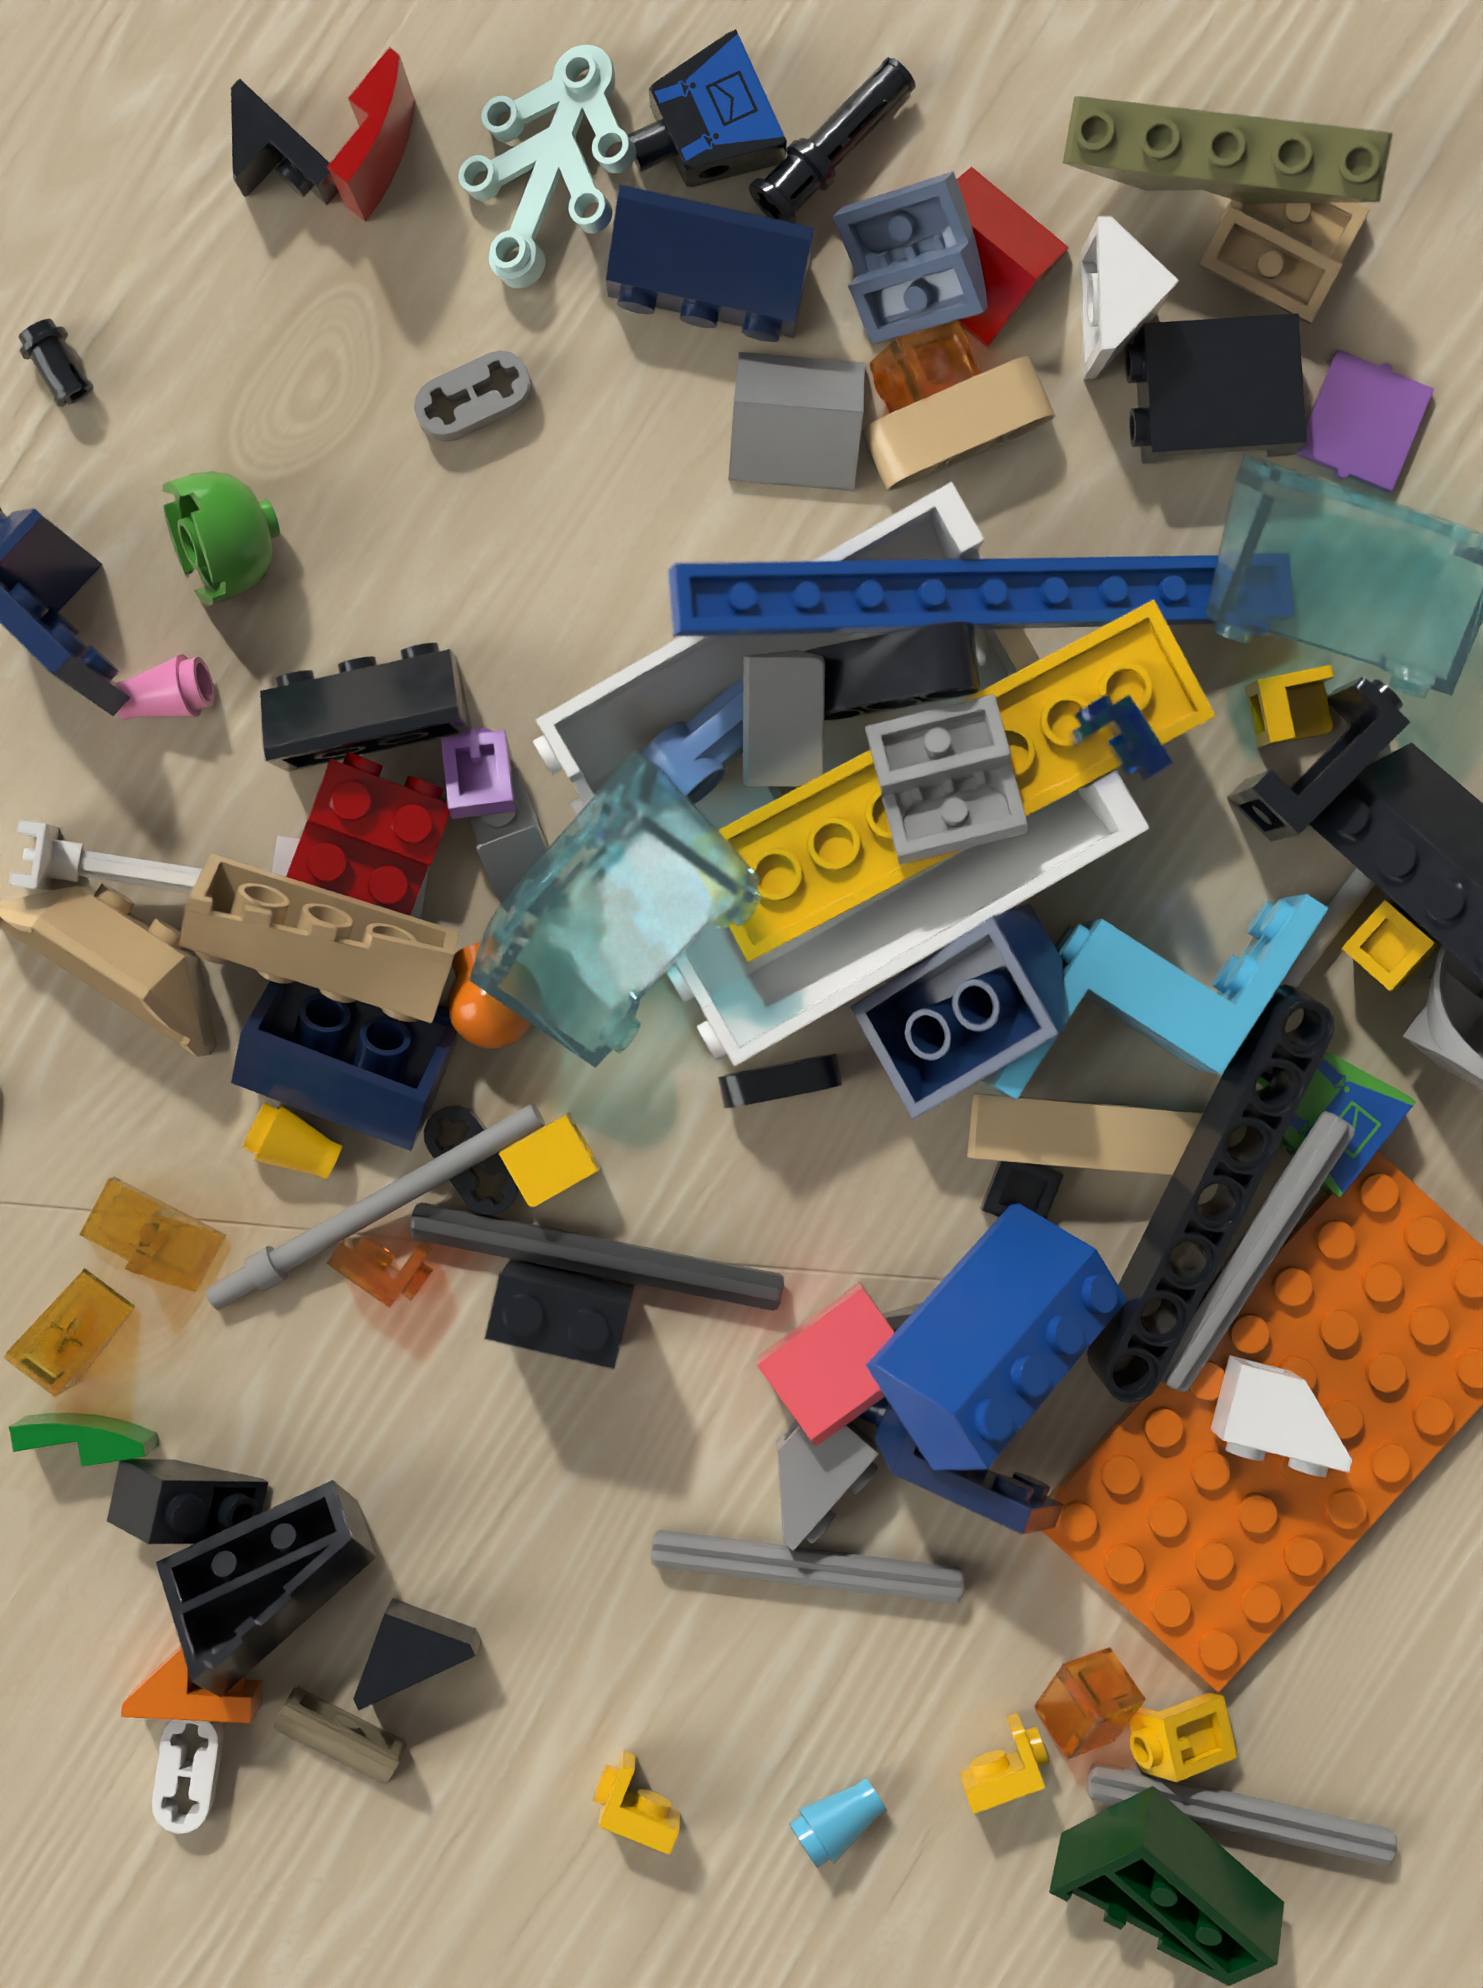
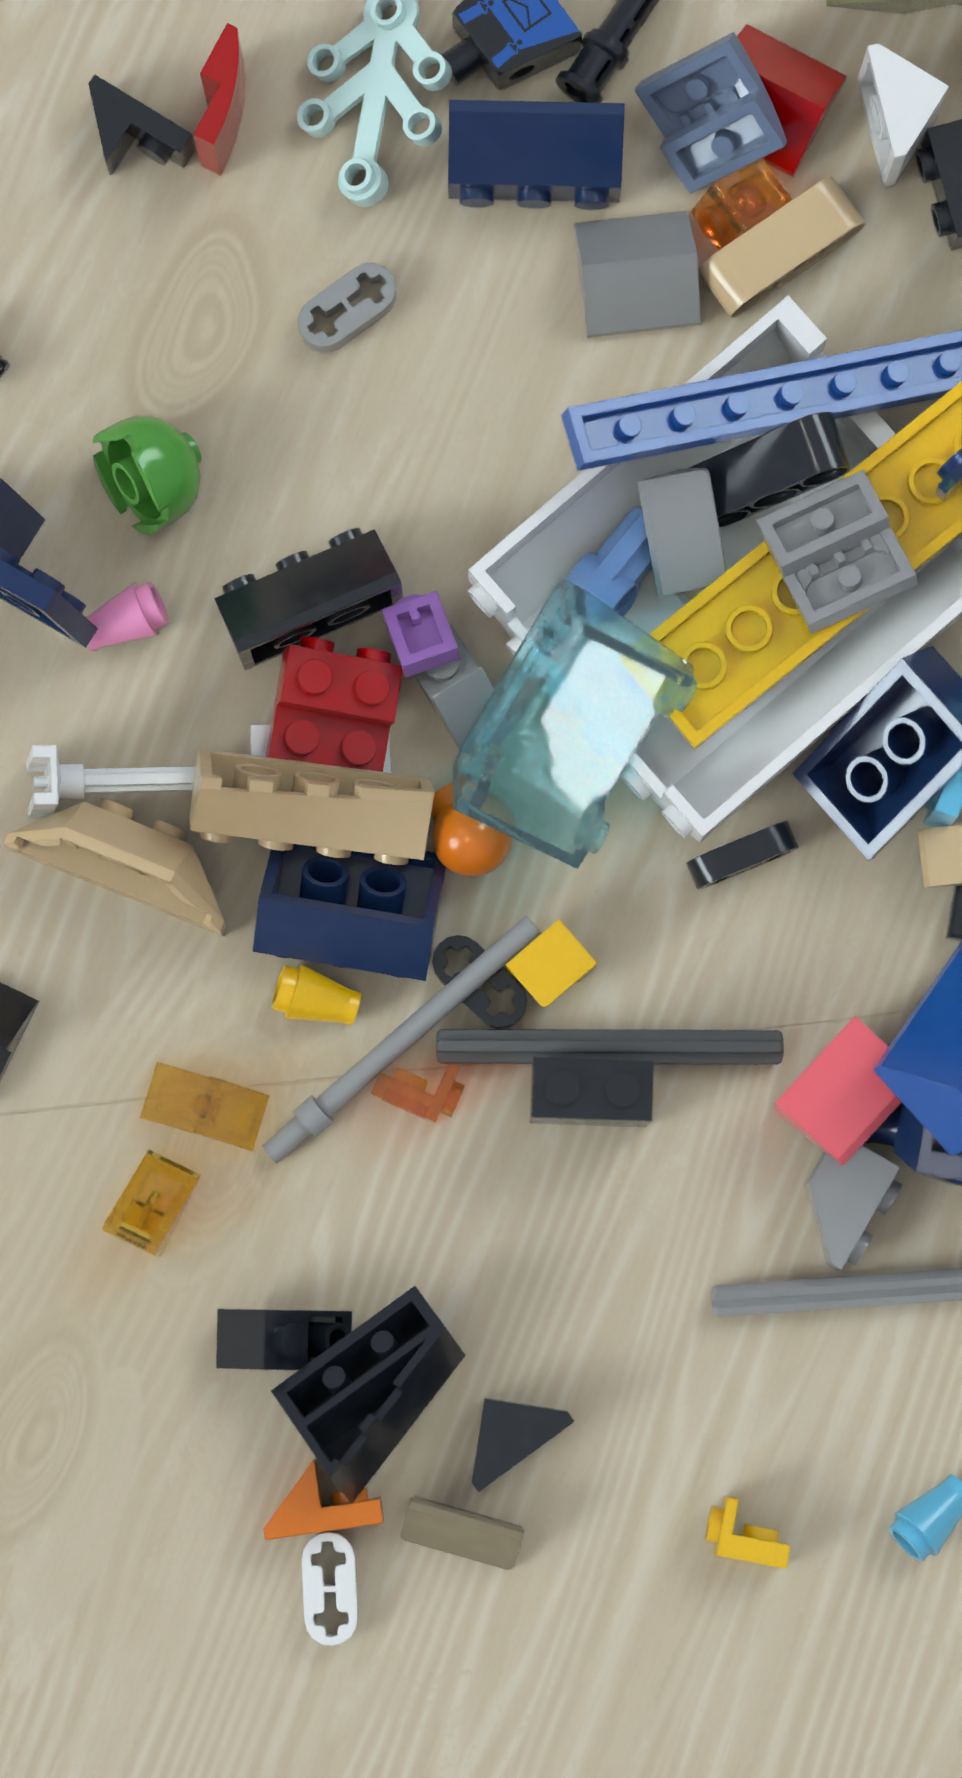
camera: 10 degrees left, 5 degrees down
(98, 1437) = (194, 1297): green slope -> none

